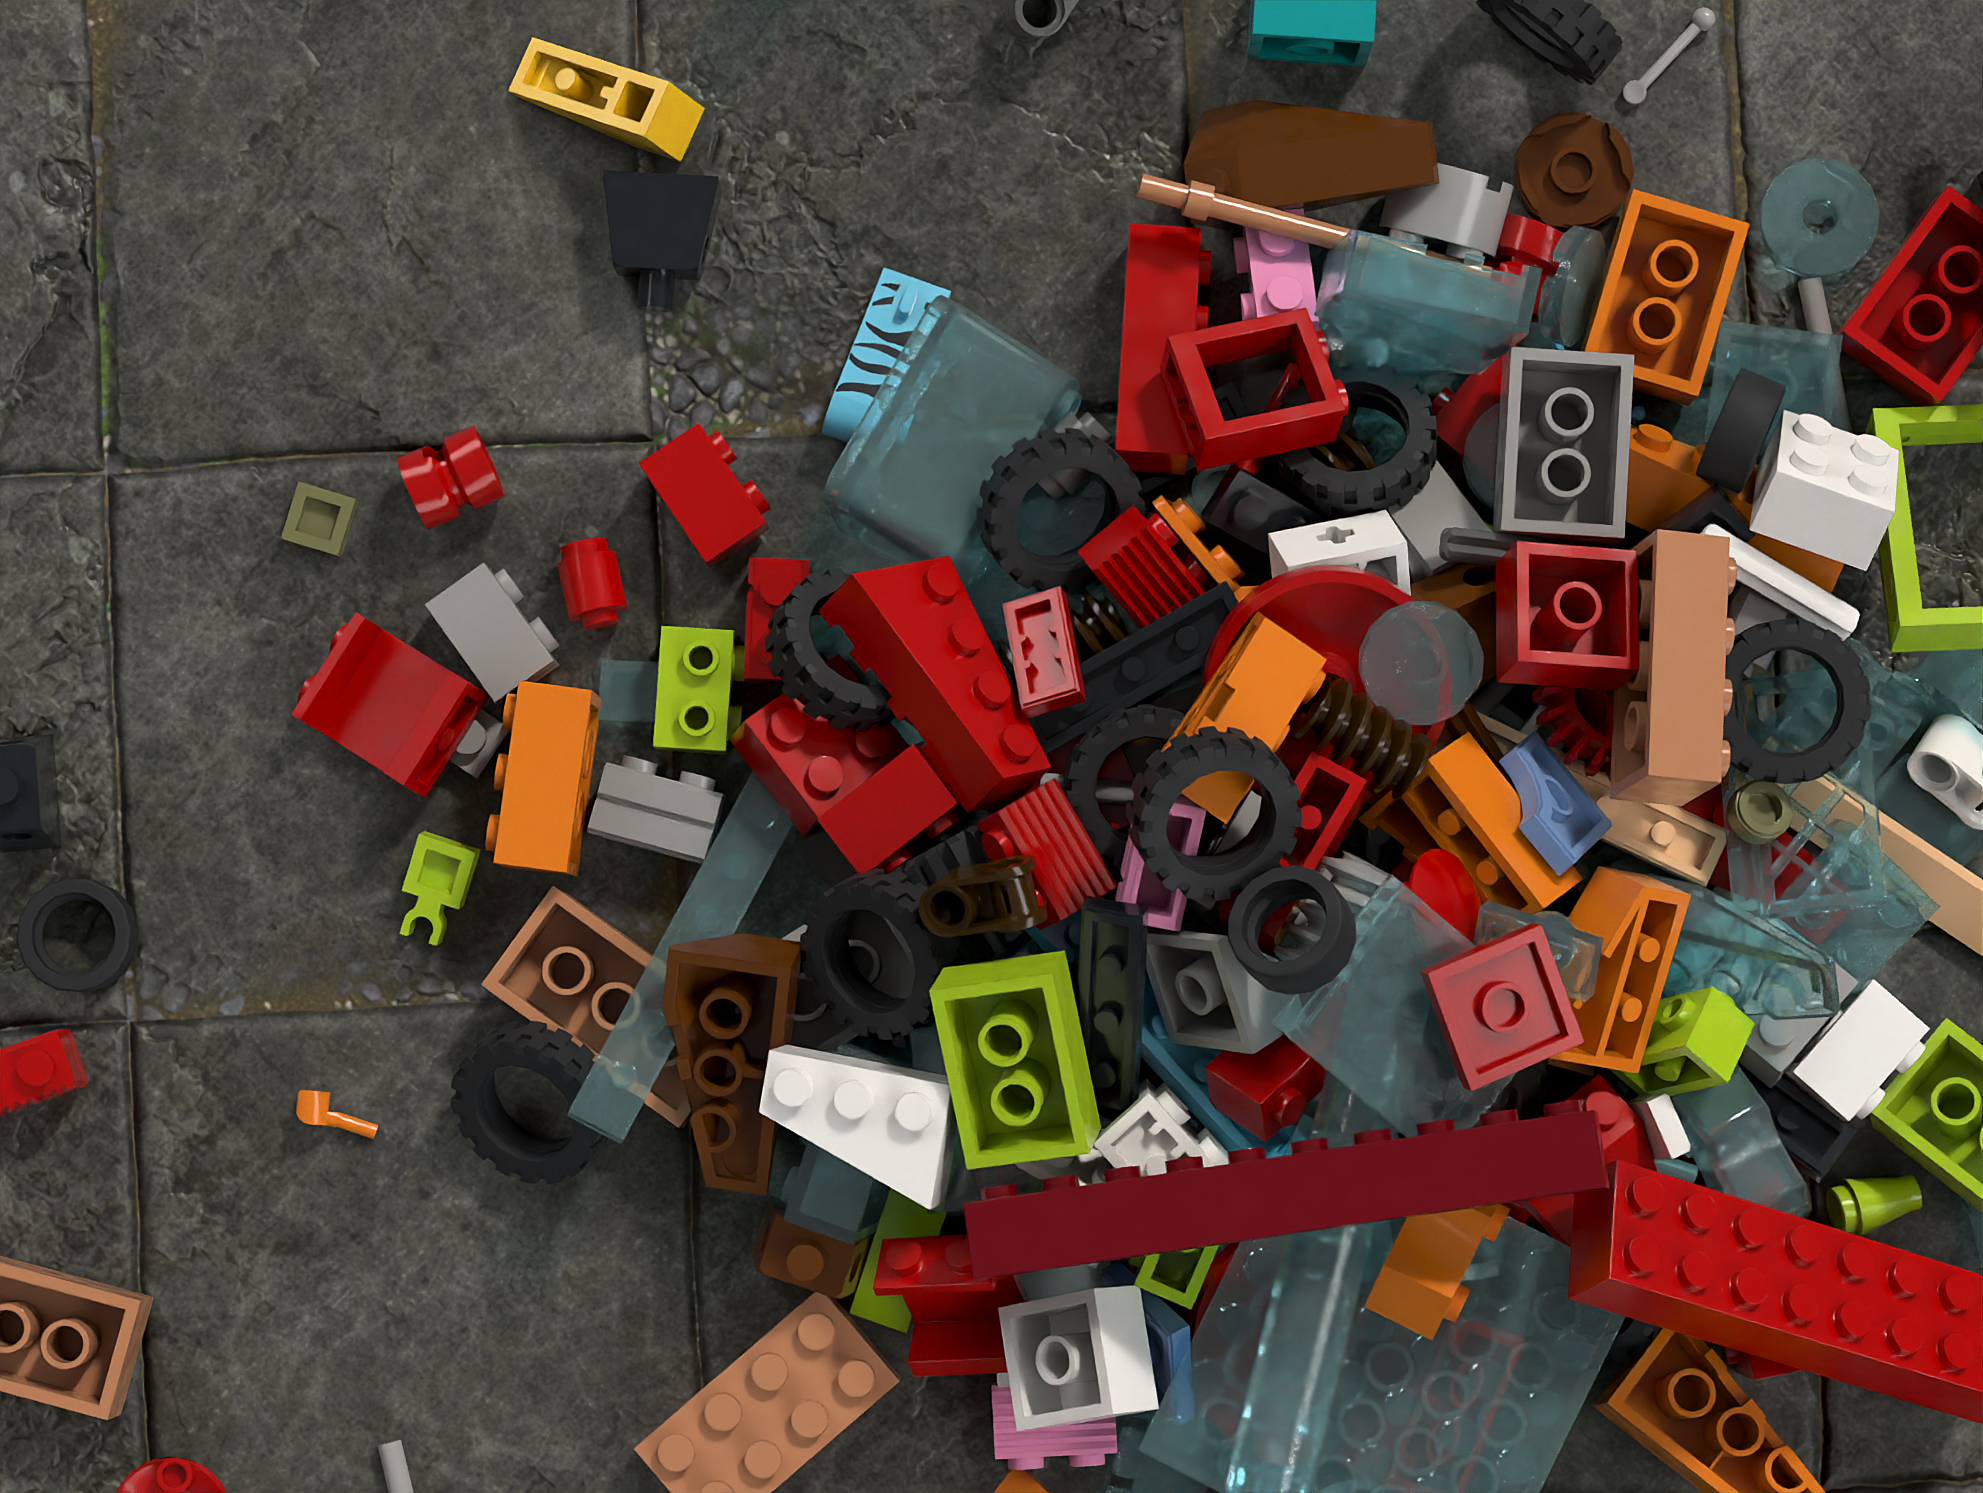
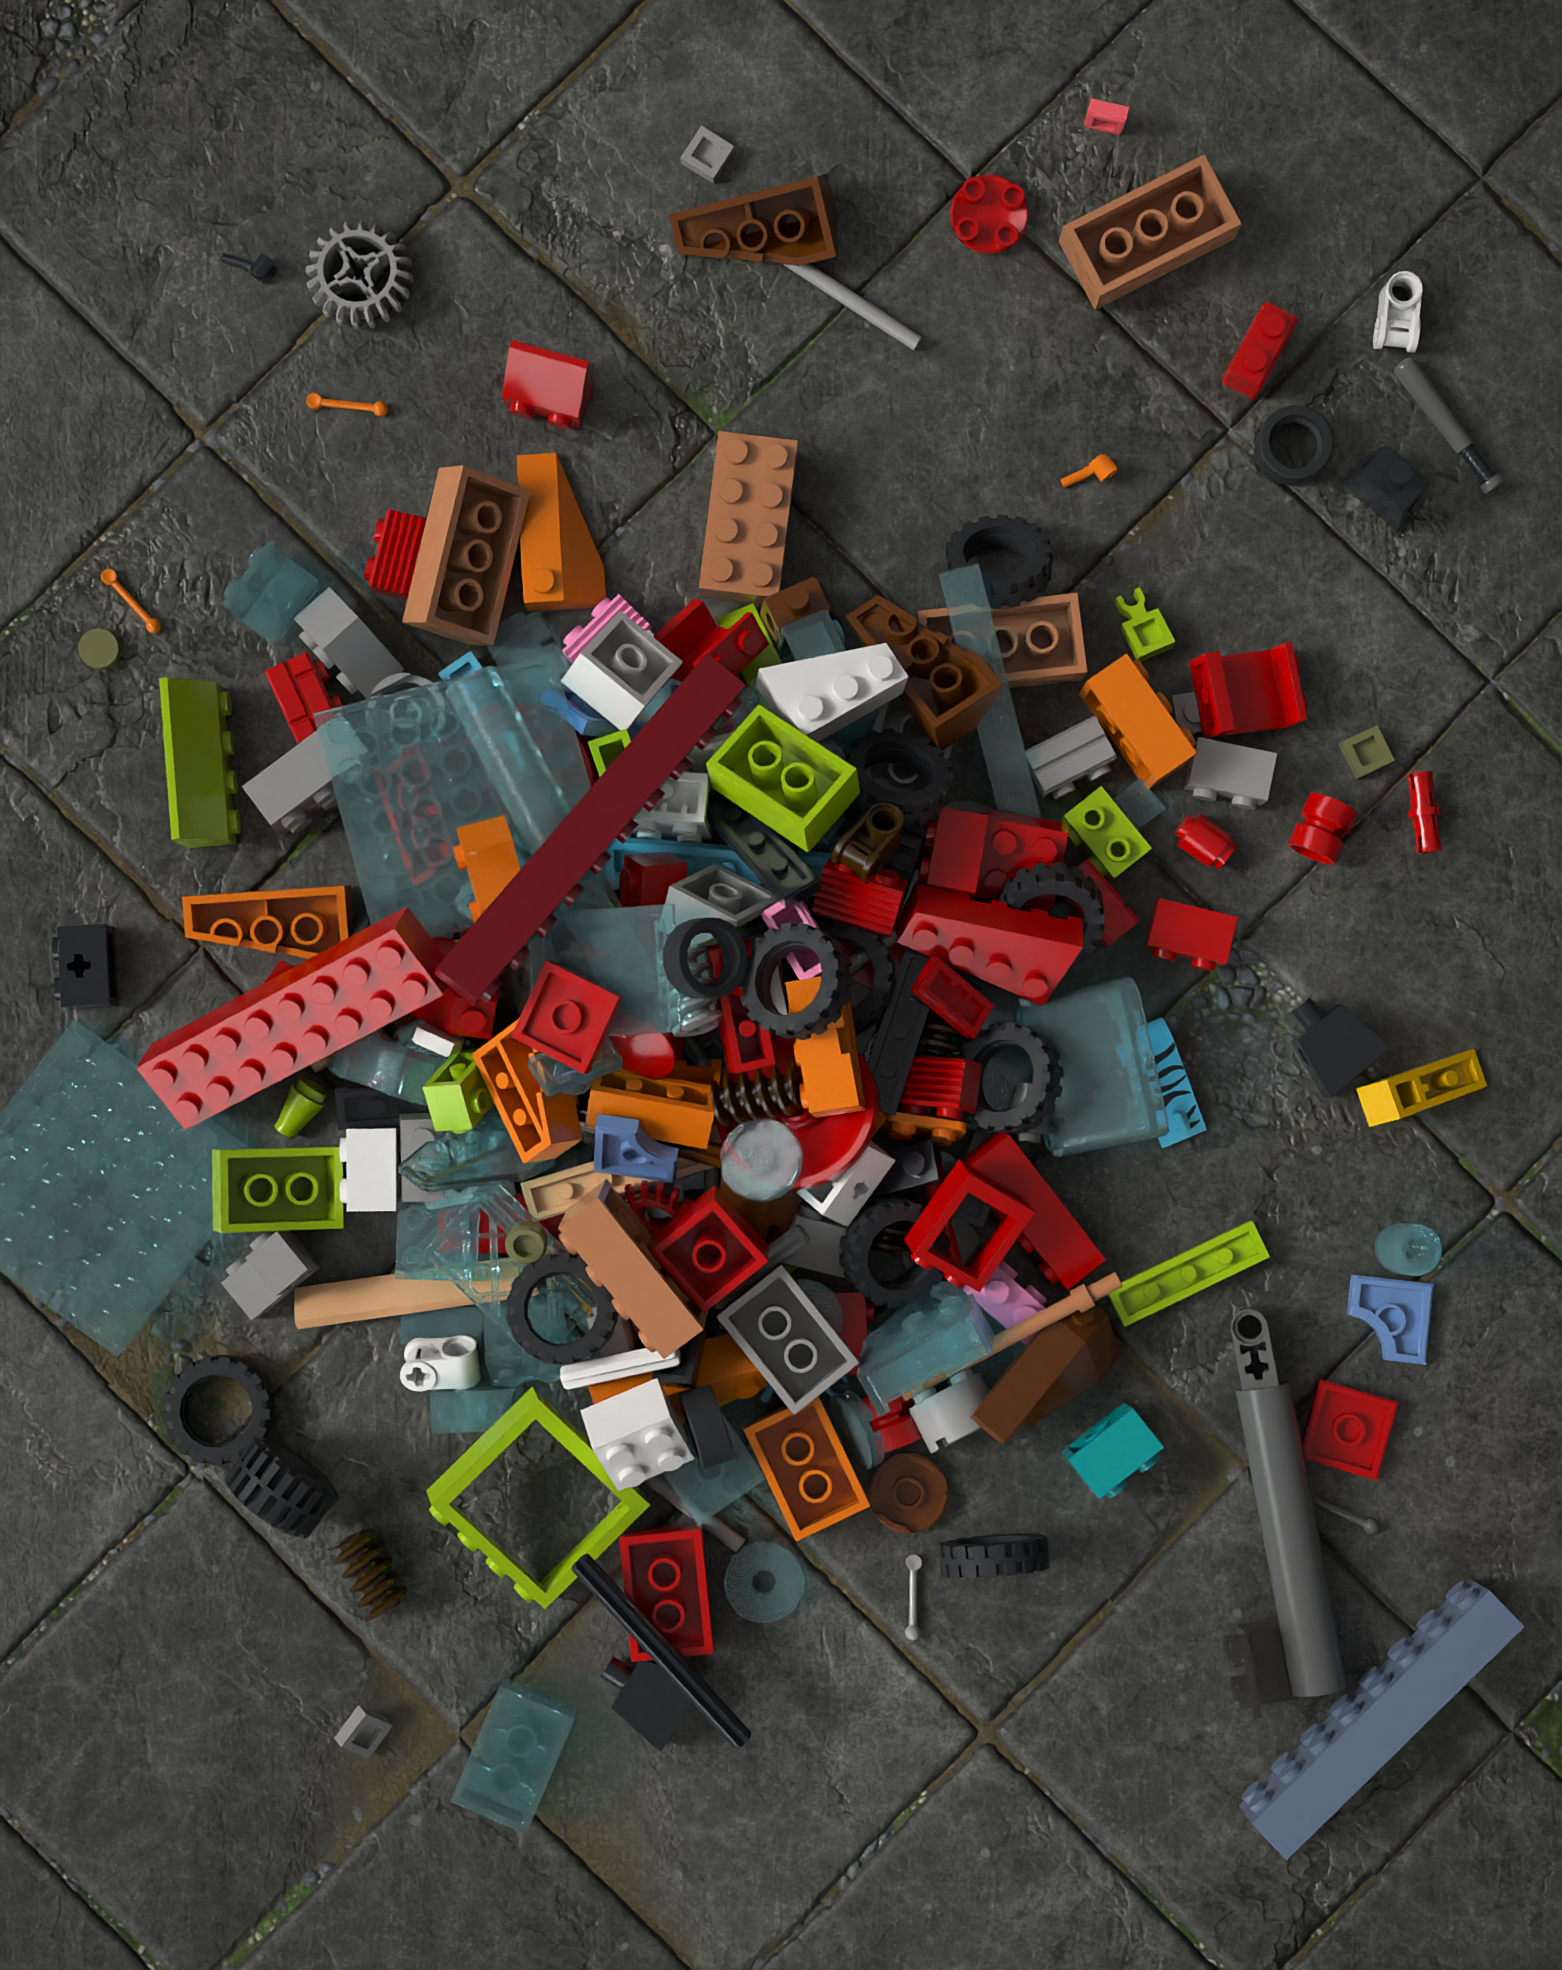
camera: 135 degrees right, 0 degrees up
(319, 394) = (1424, 812): none -> red pin
(1047, 129) = (1188, 1273): none -> lime plate

